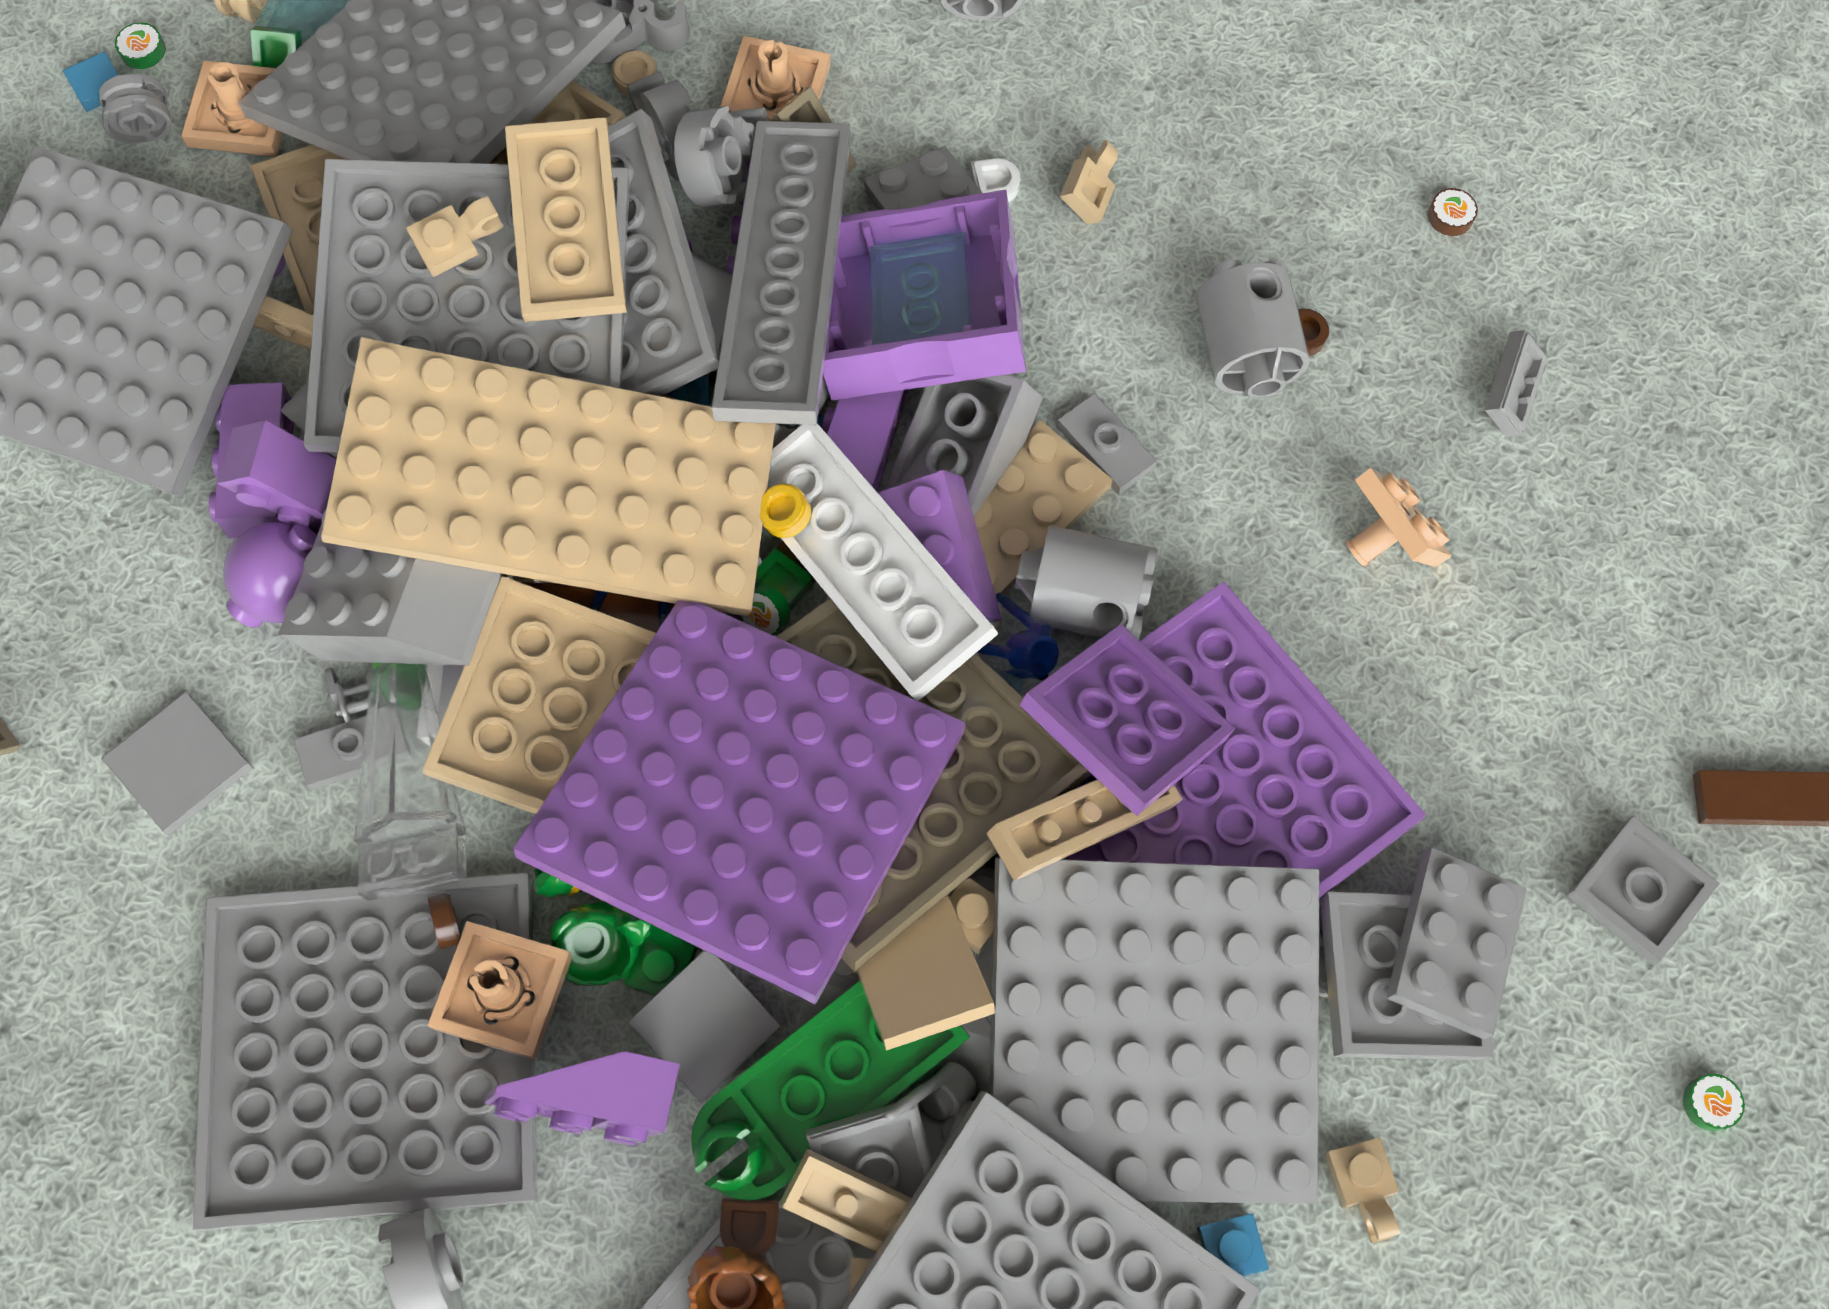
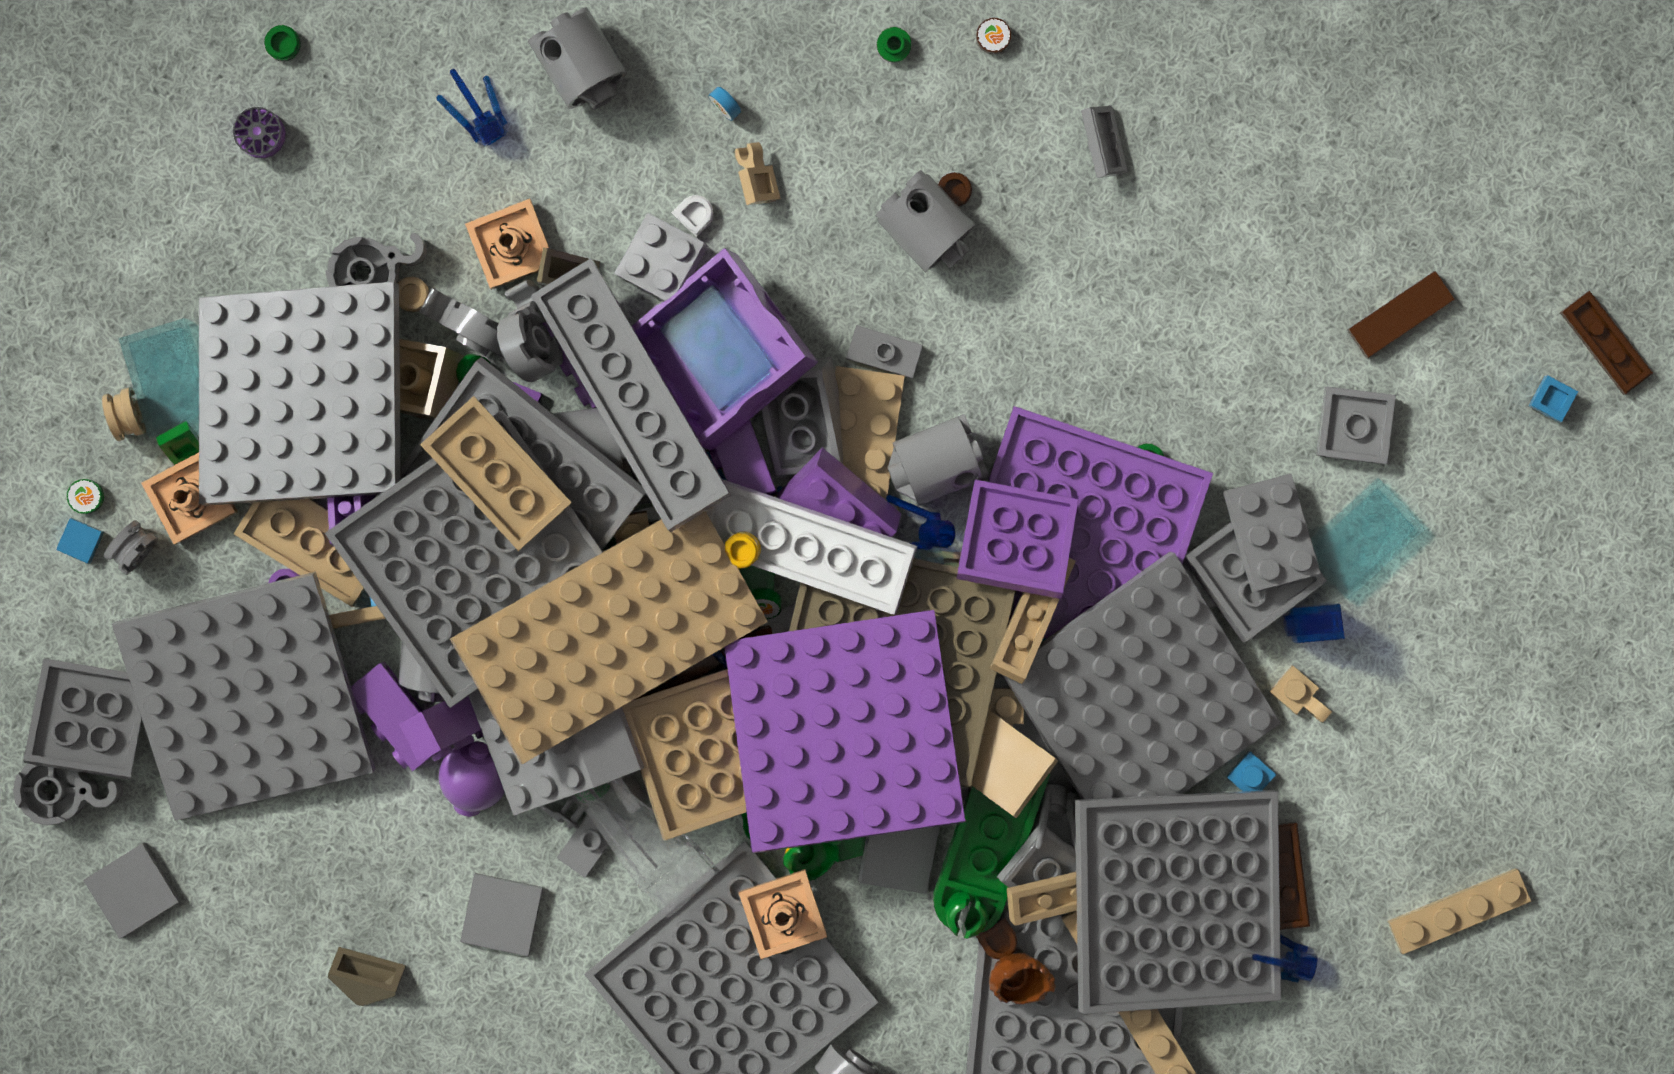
camera: 35 degrees left, 20 degrees up
(444, 920) = (725, 899): reddish brown tile -> none
(447, 239) = (436, 532): tan plate -> none
(615, 1093) = (872, 932): medium lavender slope -> none
(1108, 95) = (725, 103): none -> dark azure tile
(1332, 163) = (894, 55): none -> green plate
(1398, 521) = (1091, 293): light nougat plate -> none
(1449, 1096) = (1314, 623): none -> clear blue slope
(1573, 1039) = (1364, 538): none -> clear light blue tile
(1713, 1102) = (1458, 522): tile -> none

